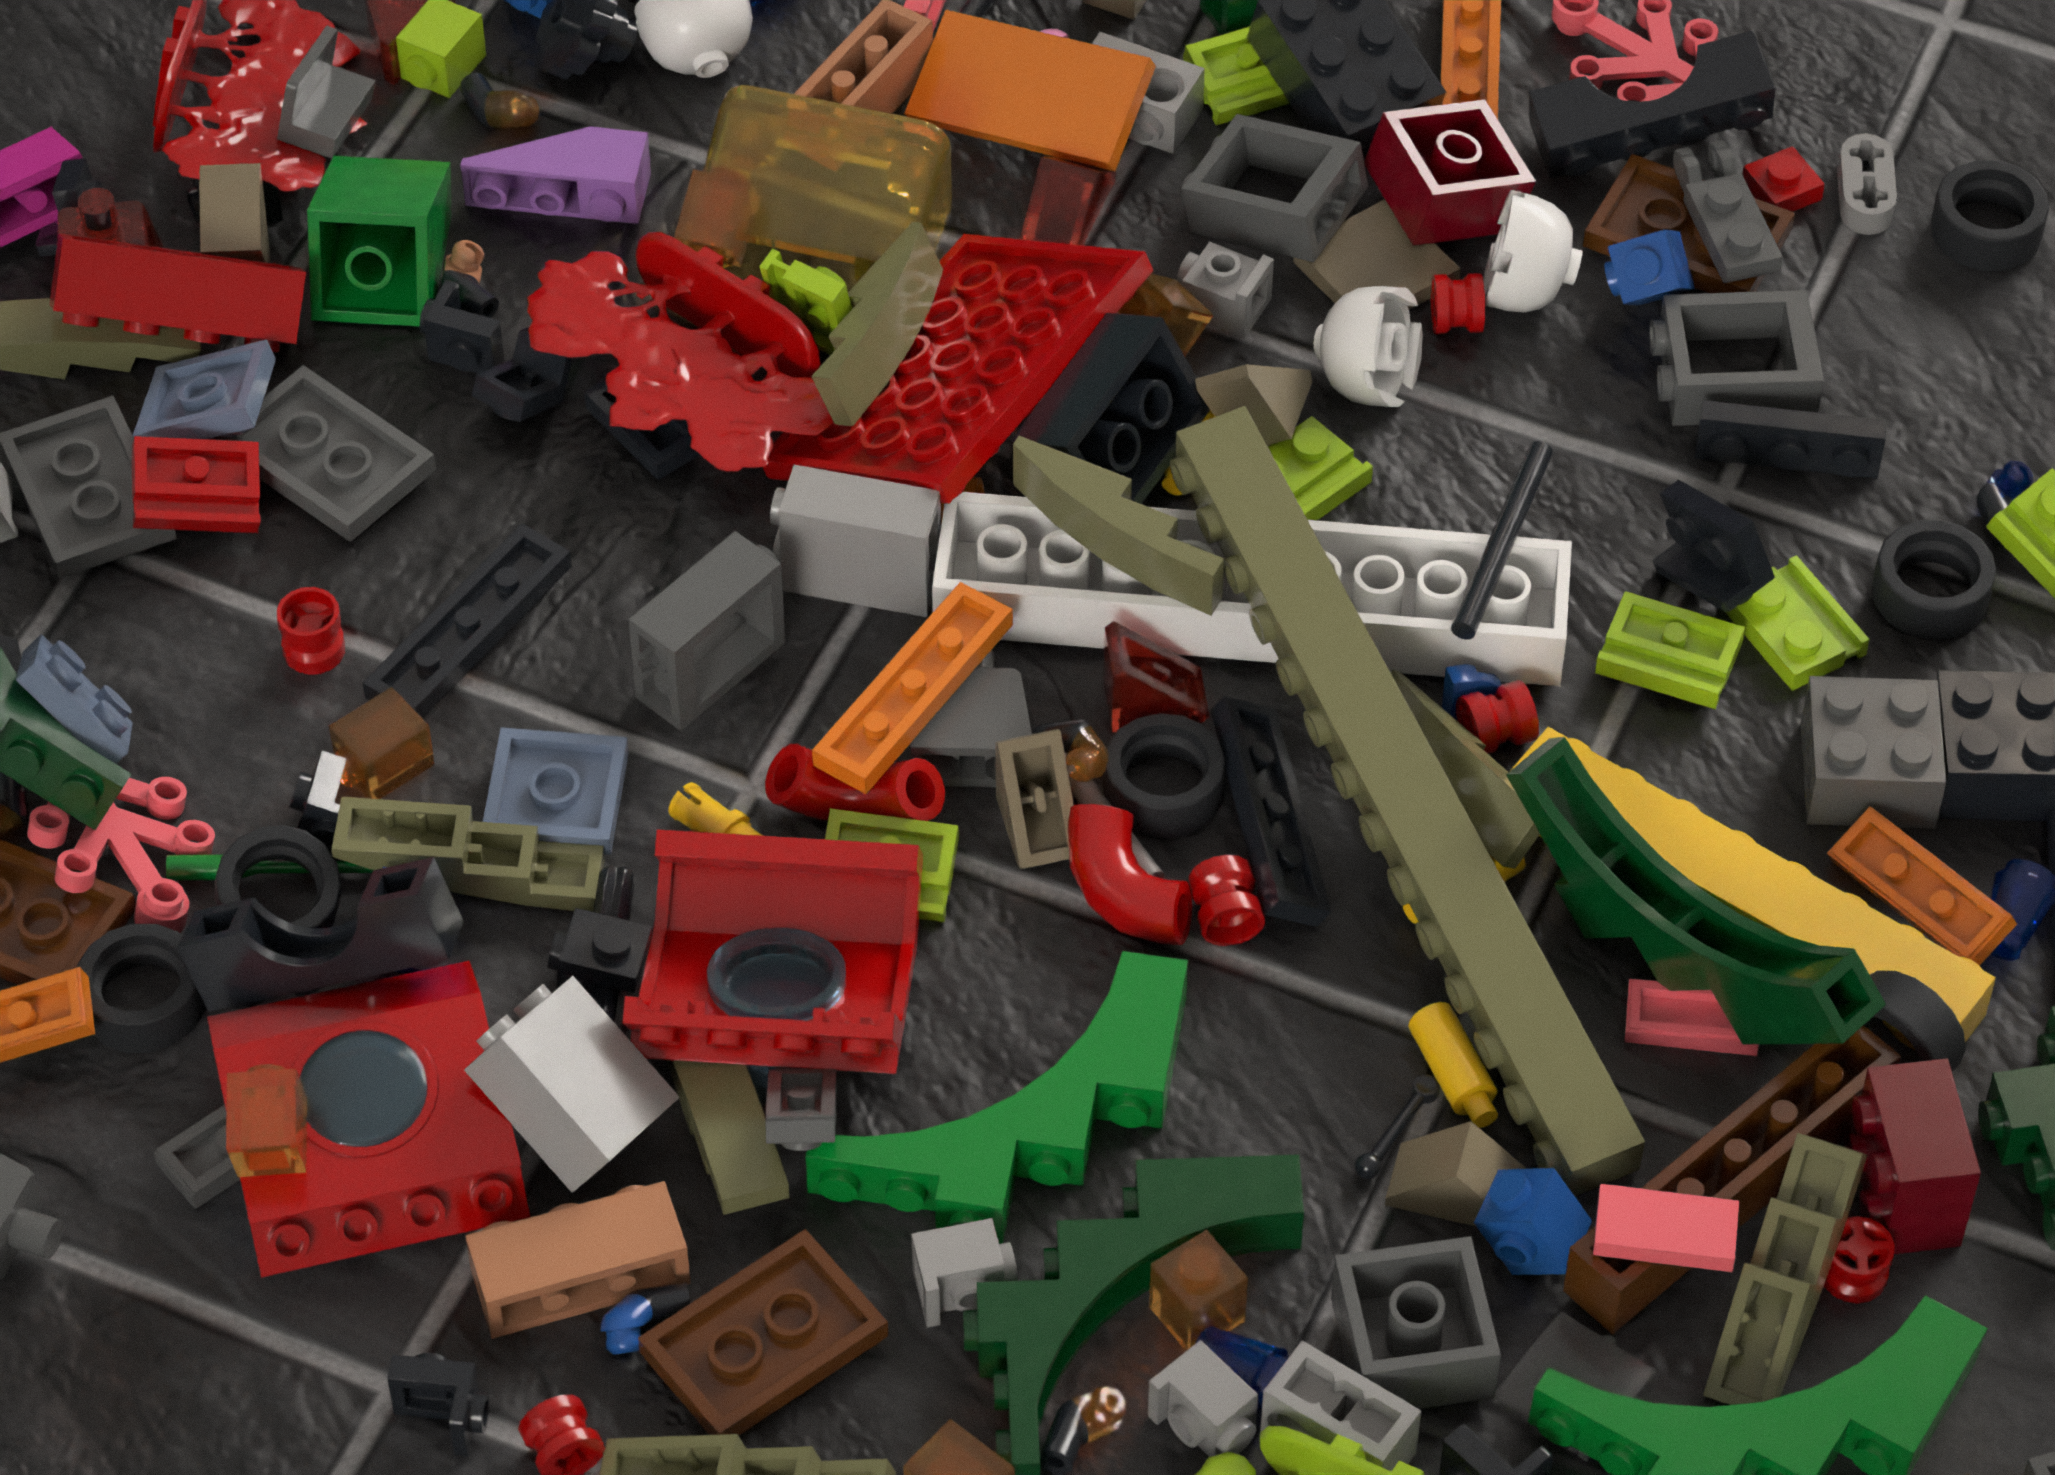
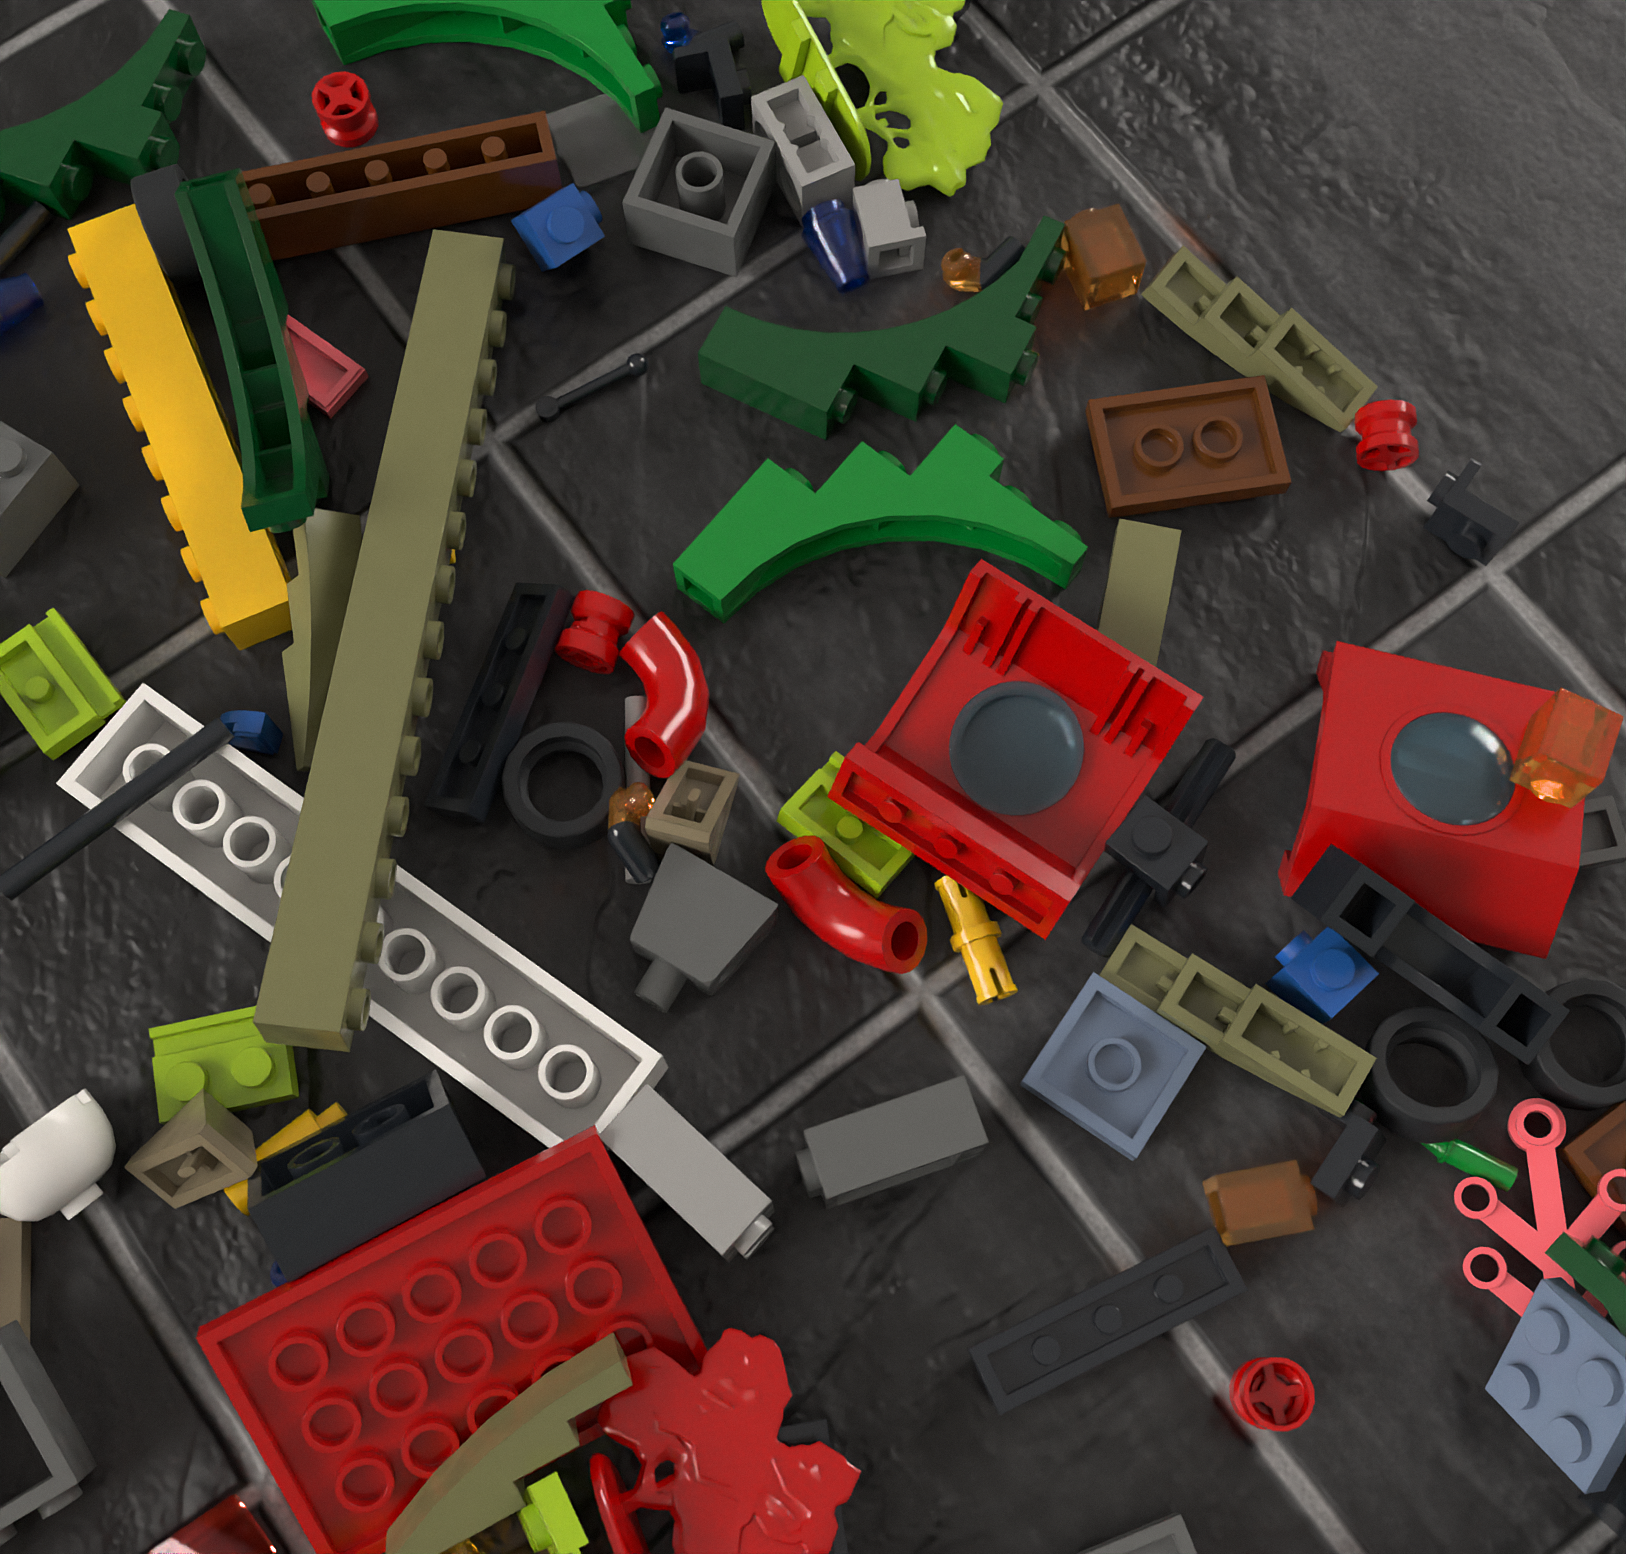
camera: 150 degrees left, 20 degrees up
(569, 1081) = (1263, 693): light grey brick -> none
(577, 1258) = (1307, 578): nougat brick -> none
(636, 1310) = (1273, 522): blue arm -> none
(801, 1107) = (1081, 563): dark grey hinge -> none
(912, 687) = (745, 947): orange plate -> none
(952, 1261) = (1007, 417): light grey brick -> none
(1099, 514) = (460, 1024): olive slope -> none
(1148, 679) = (516, 886): clear red slope -> none
(1175, 304) = (201, 1303): clear orange brick -> none
(1197, 1289) = (839, 296): clear orange brick -> none
(1229, 286) = (148, 1346): light grey brick -> none
(1447, 1173) = (584, 314): dark tan slope -> none
(1454, 1062) = (514, 403): yellow cylinder -> none
(1500, 716) = (246, 686): red wheel -> none
(1666, 1228) = (479, 125): coral tile -> none
(1785, 1273) = (402, 101): olive slope -> none
(1919, 1155) = (247, 110): dark red brick -> none
(1921, 887) = (49, 355): orange tile -> none

